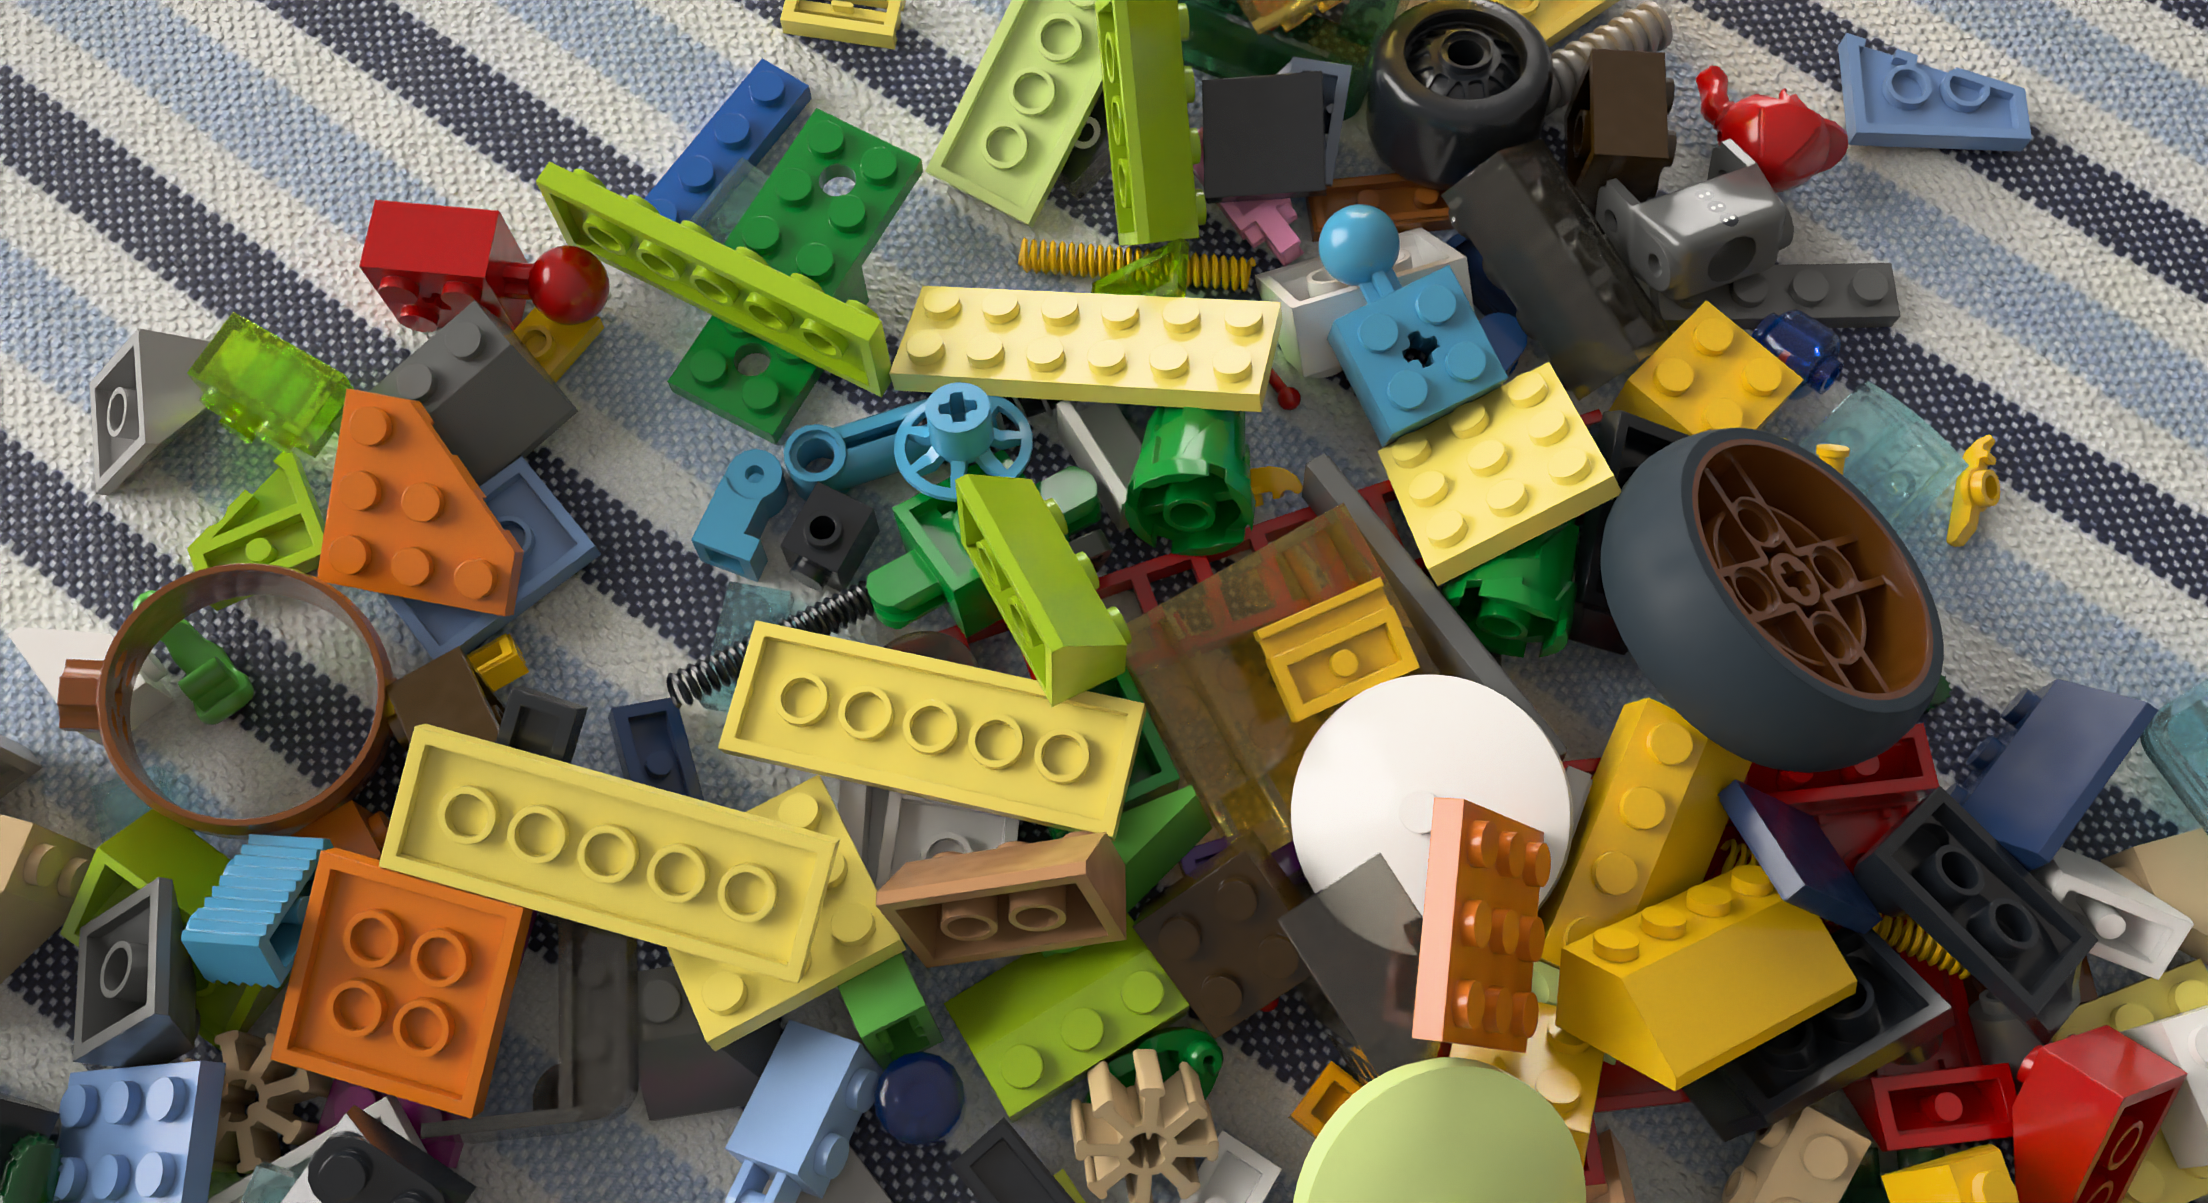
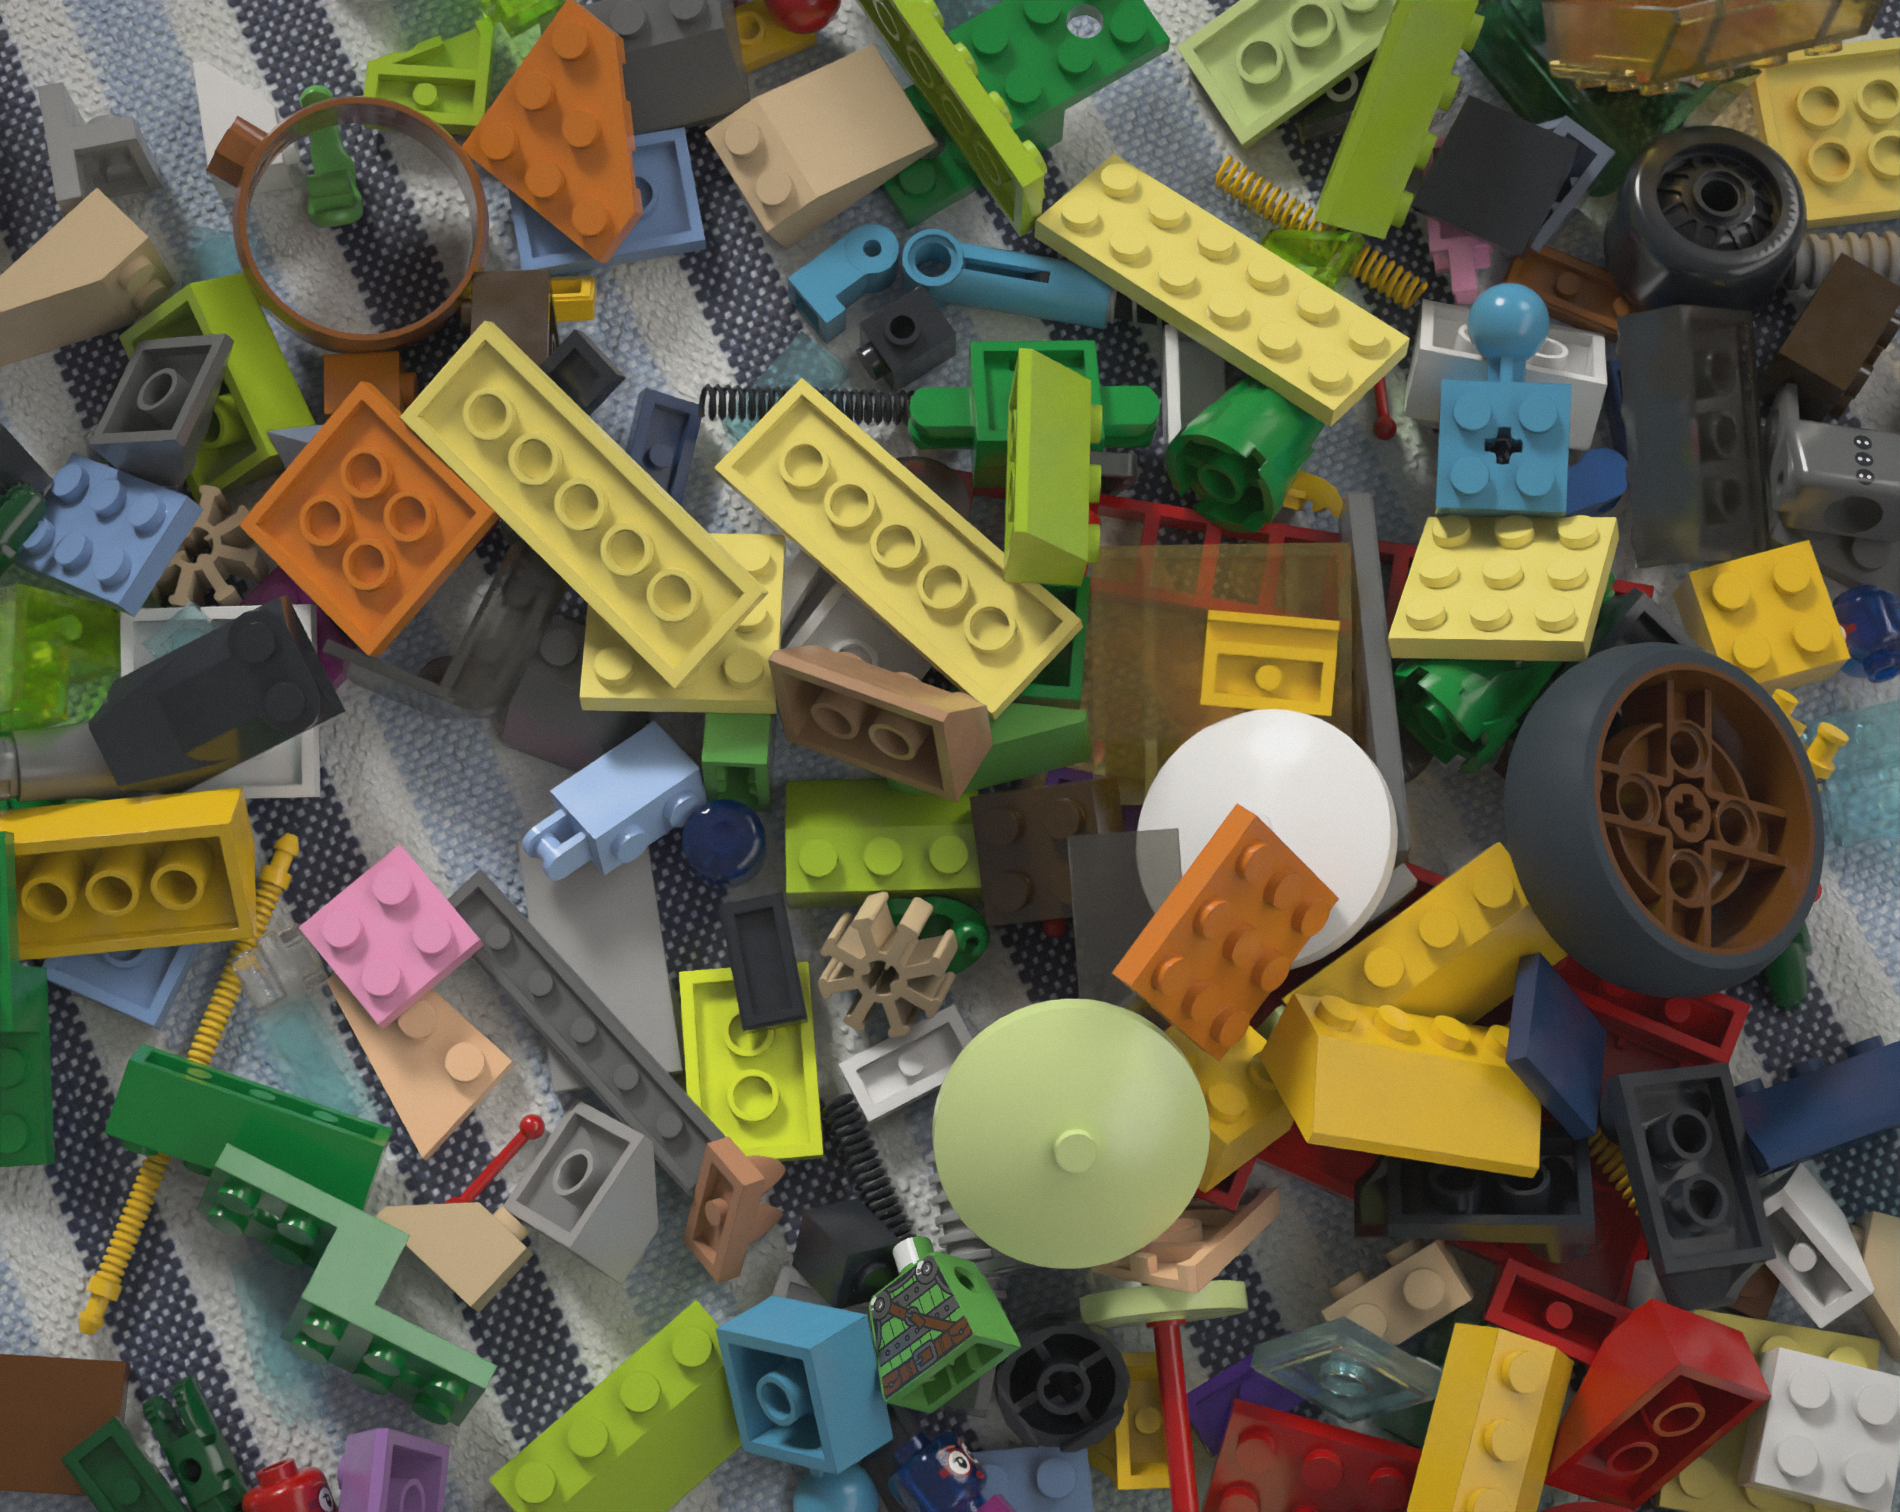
camera: 30 degrees right, 5 degrees up
(256, 912) = (287, 401): dark azure brick -> none
(656, 406) = (821, 143): none -> tan slope
(960, 433) = (1064, 309): dark azure wheel -> none

